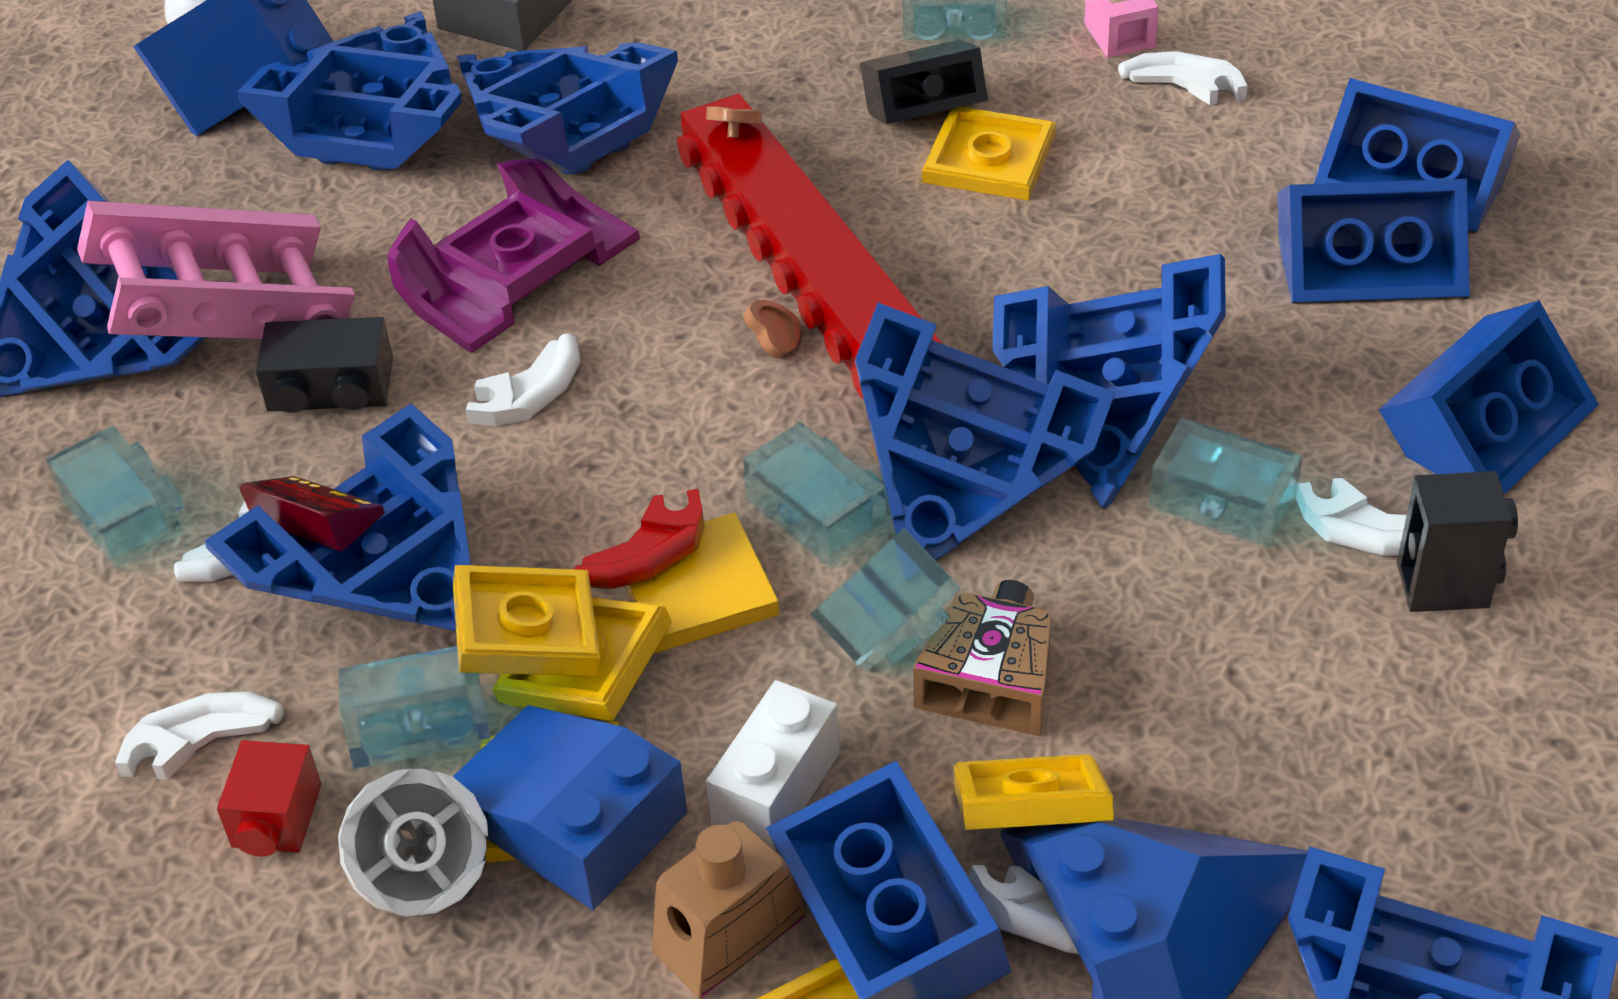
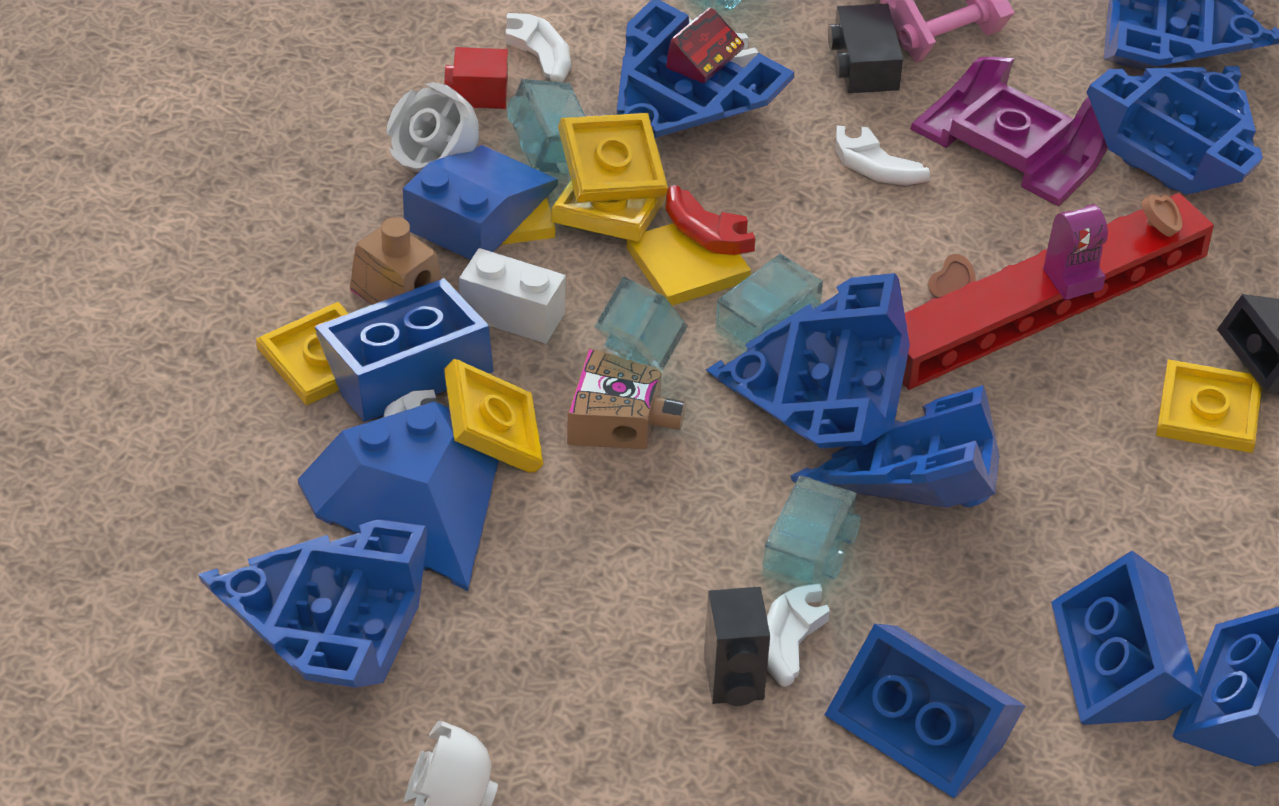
camera: 80 degrees right, 0 degrees up
(811, 171) = (1076, 251): none -> magenta leg

